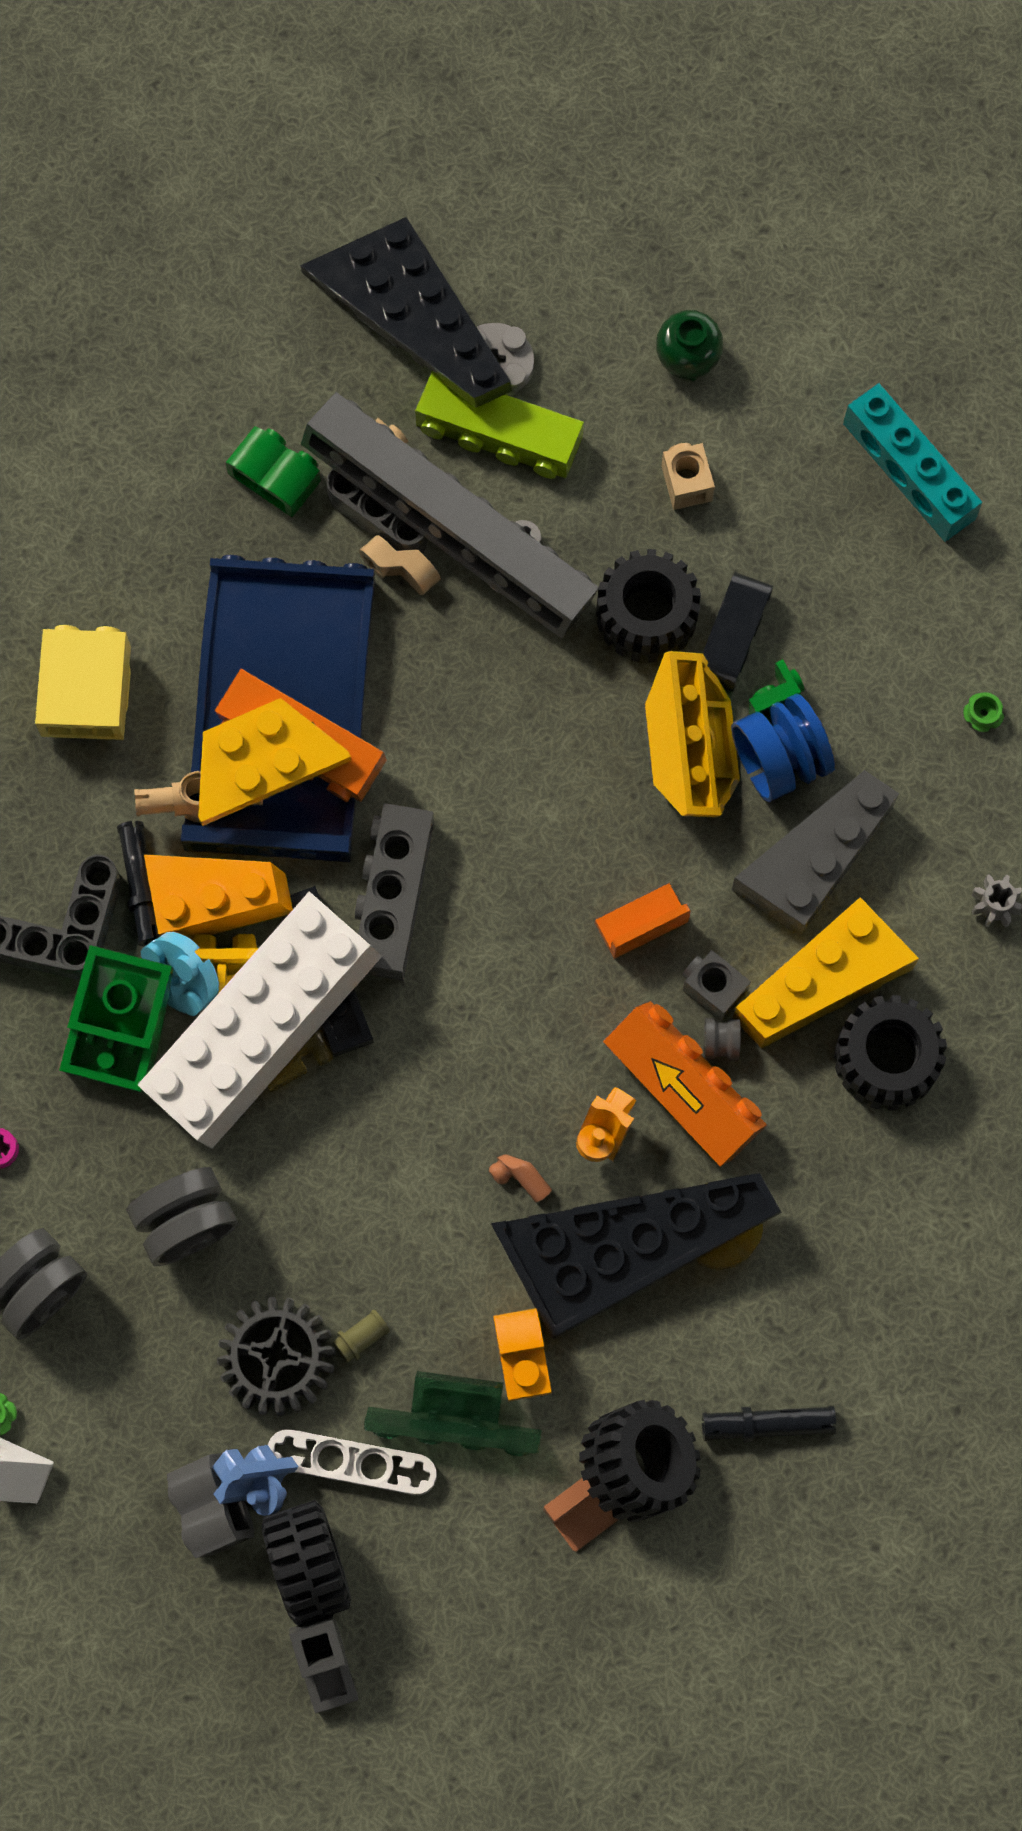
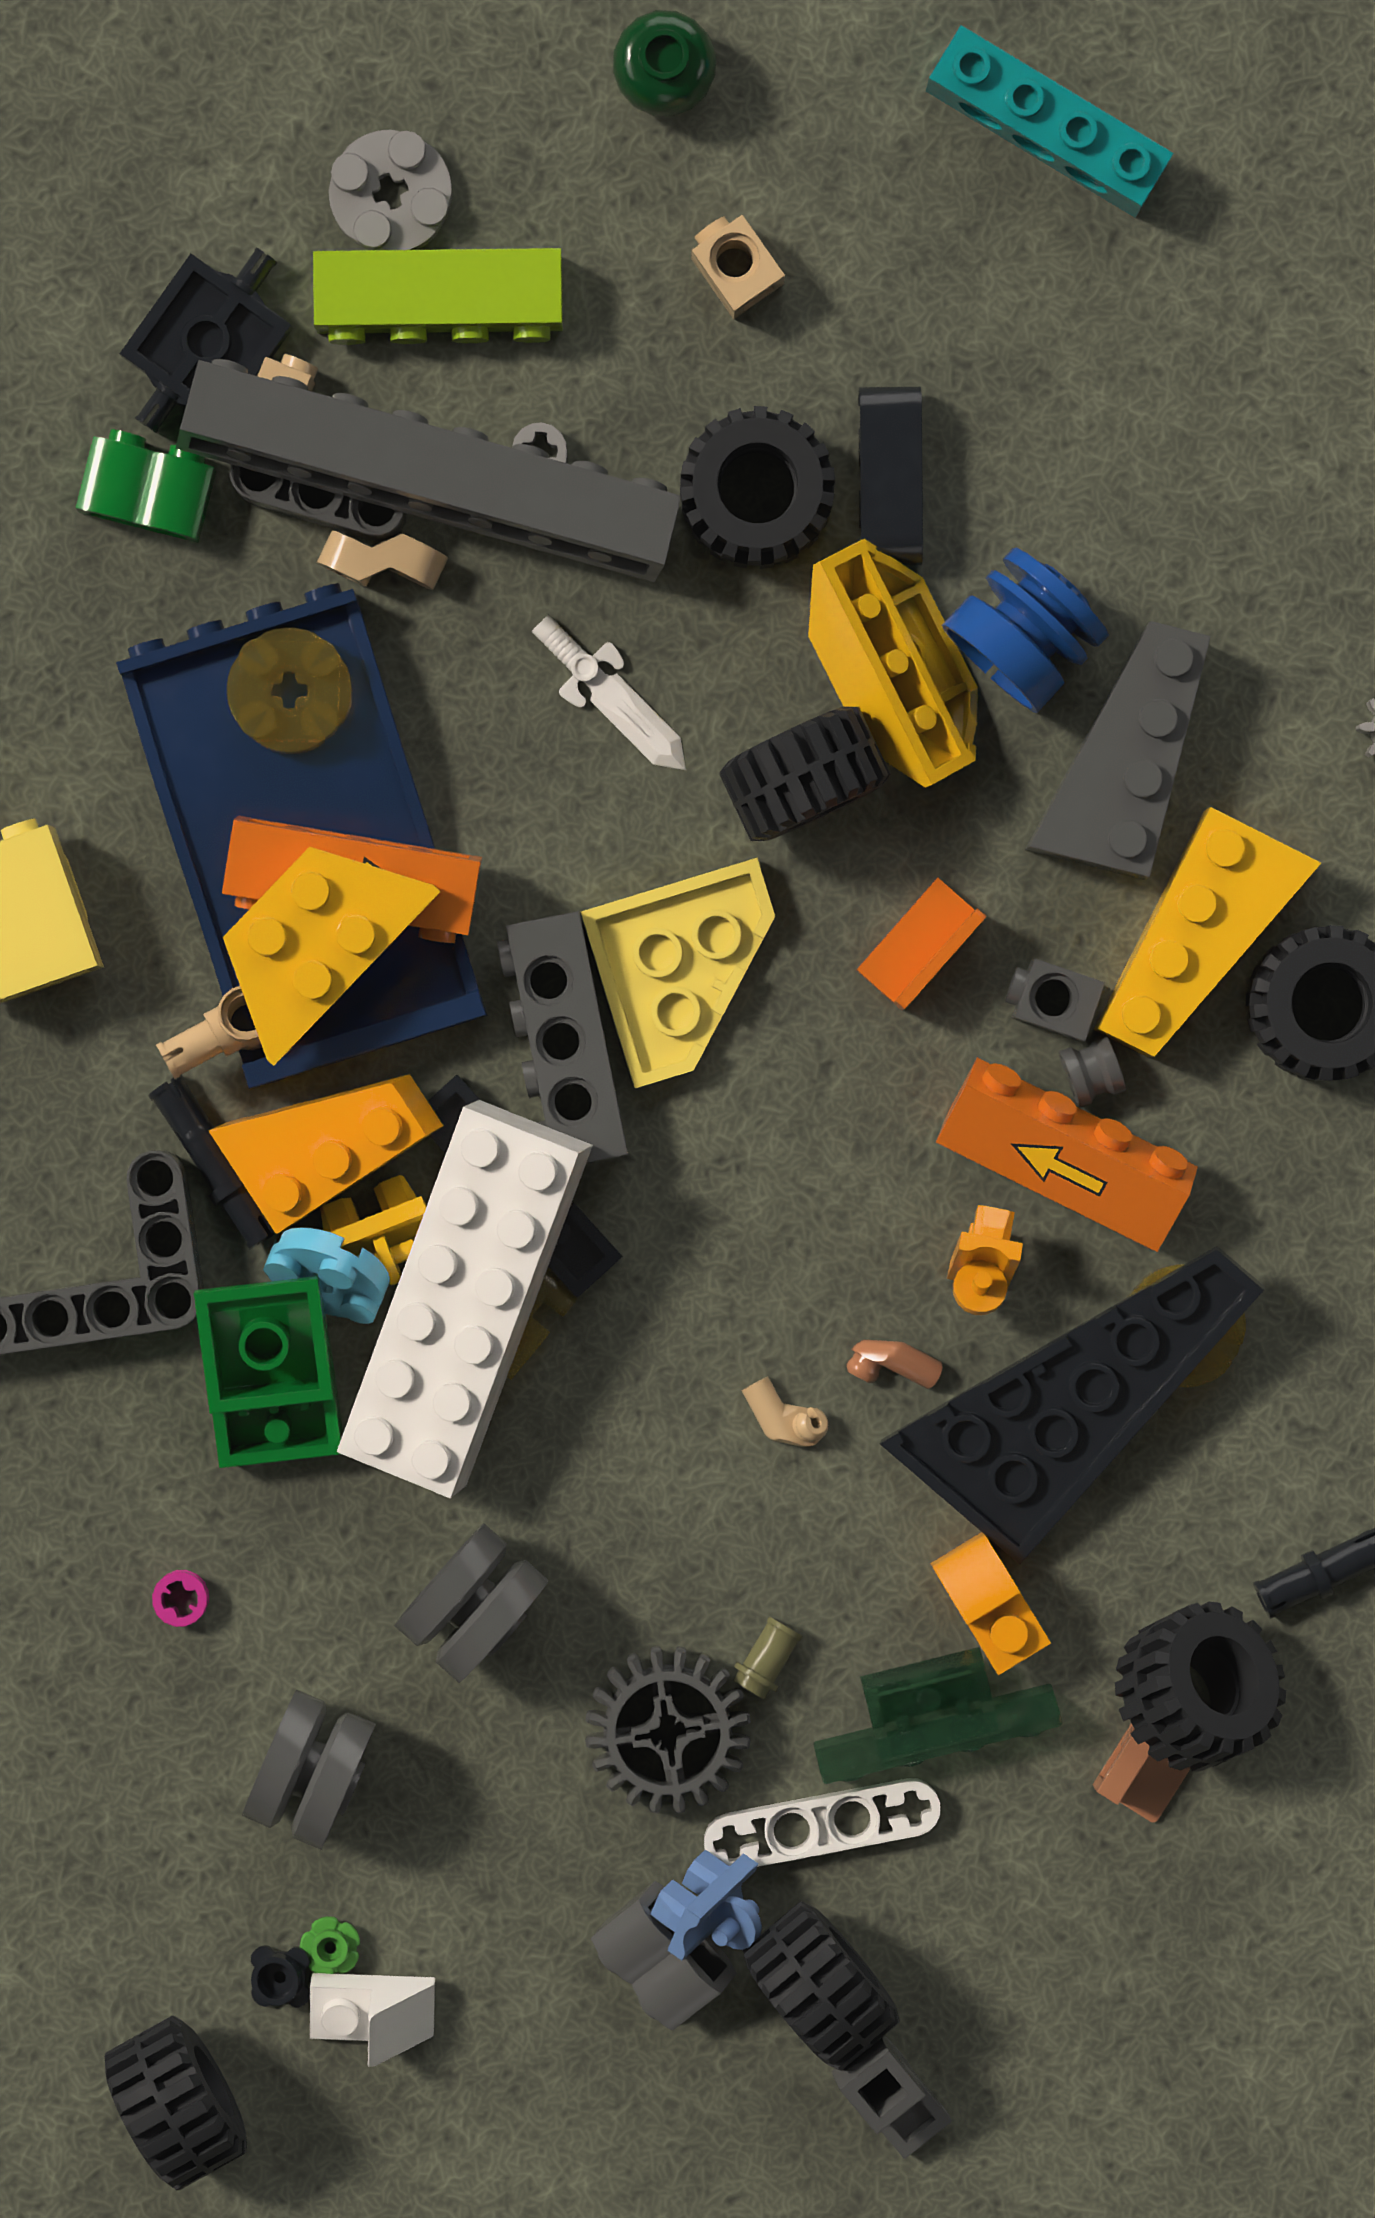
camera: 25 degrees left, 15 degrees up
(319, 633) = (264, 664): none -> clear yellow plate
(354, 380) = (203, 319): none -> black plate
(410, 303) = (226, 151): black wing -> none
(433, 1187) = (783, 1421): none -> tan arm
(483, 872) = (676, 963): none -> light yellow plate
(508, 699) = (612, 696): none -> white sword
(609, 779) = (804, 773): none -> black tyre
(789, 684) = (981, 556): green bracket -> none
(987, 702) = (1292, 444): bright green plate -> none

